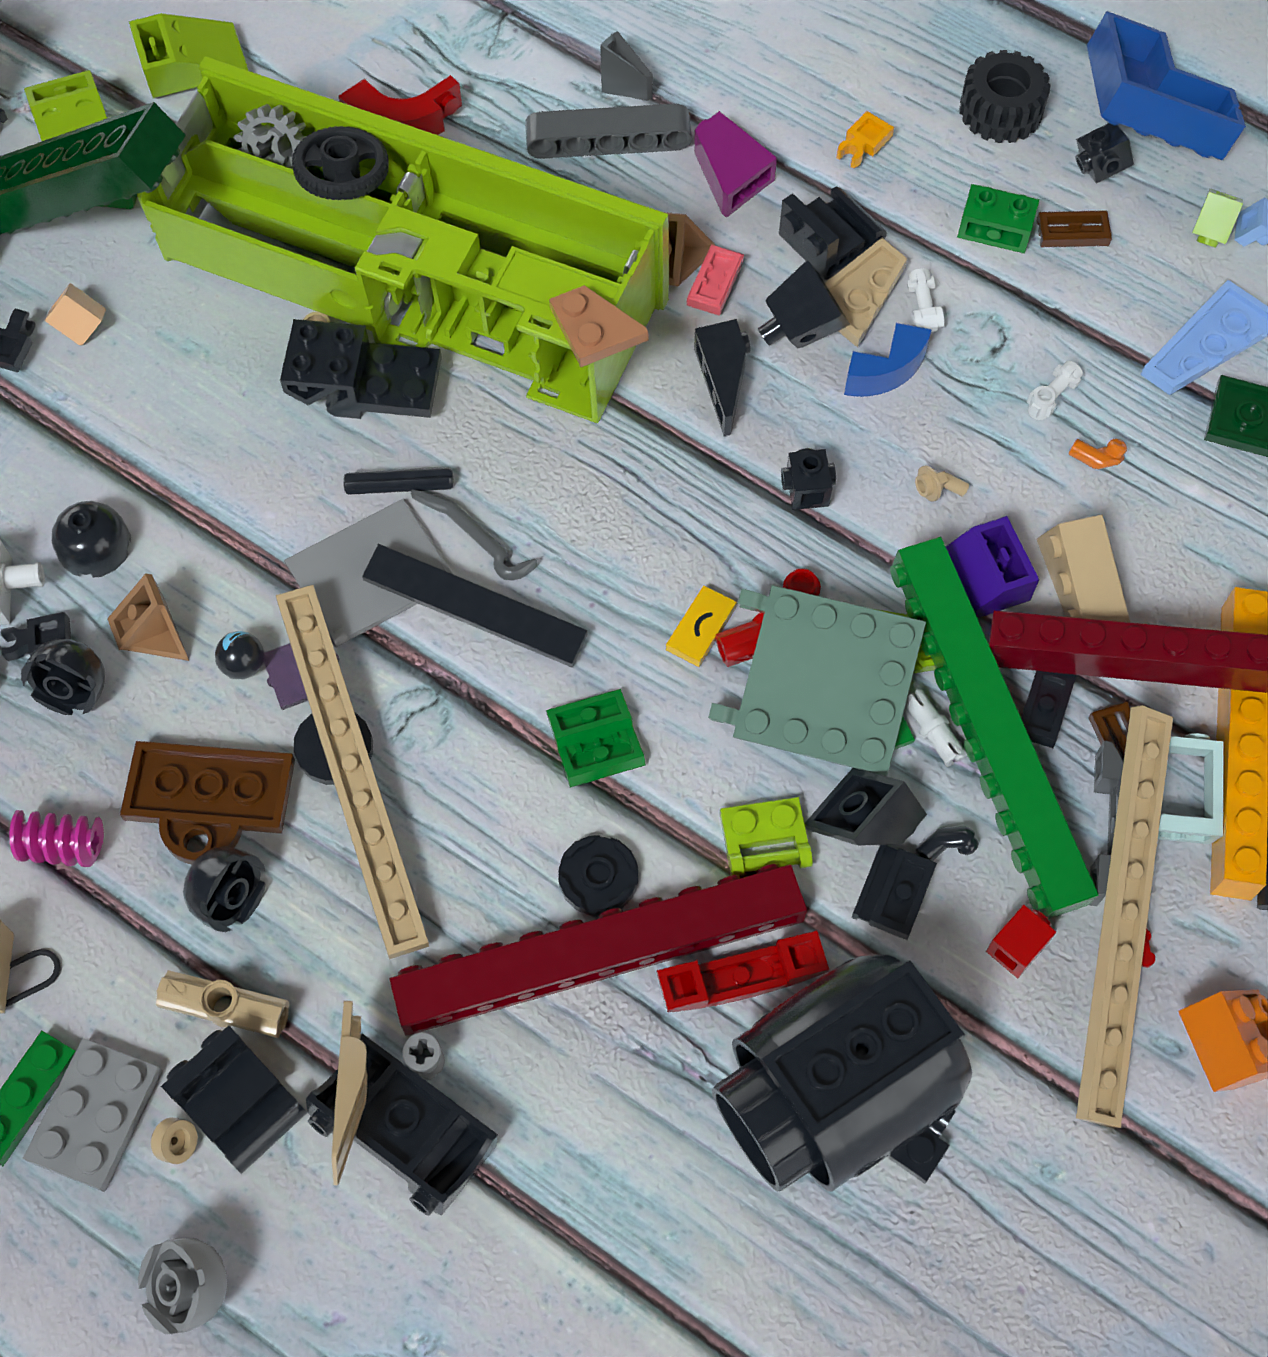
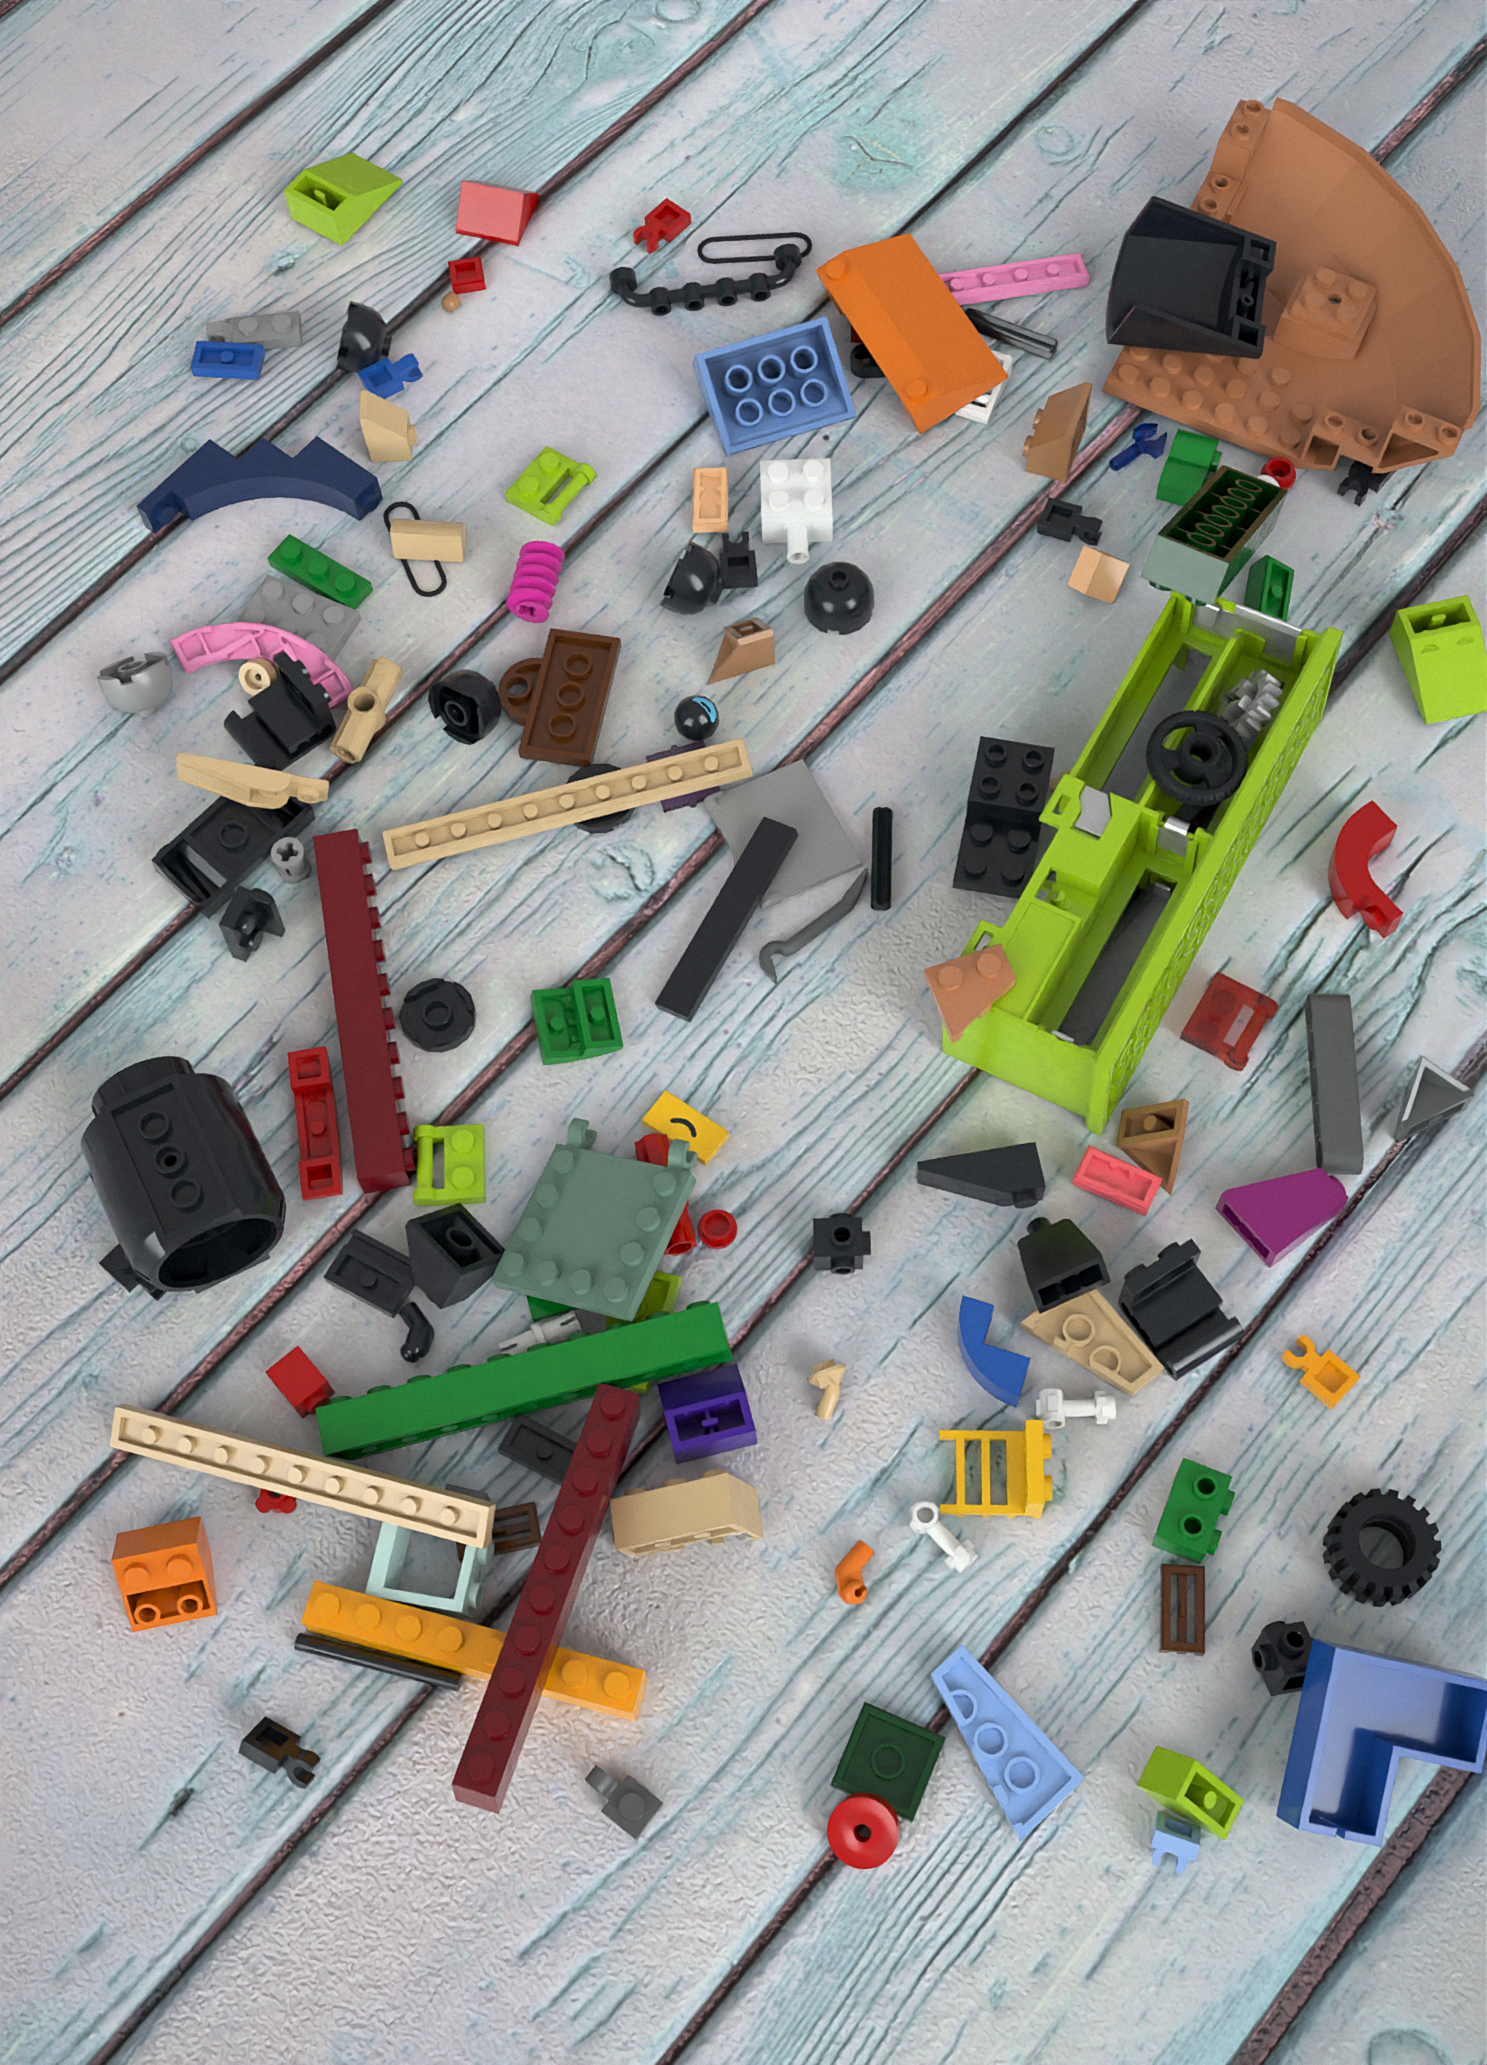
camera: 100 degrees right, 0 degrees up
(65, 104) = (1333, 556): lime slope -> none
(128, 1143) = (256, 640): none -> bright pink tile
(512, 1079) = (247, 918): none -> black bracket
(990, 330) = (1025, 1479): none -> yellow plate

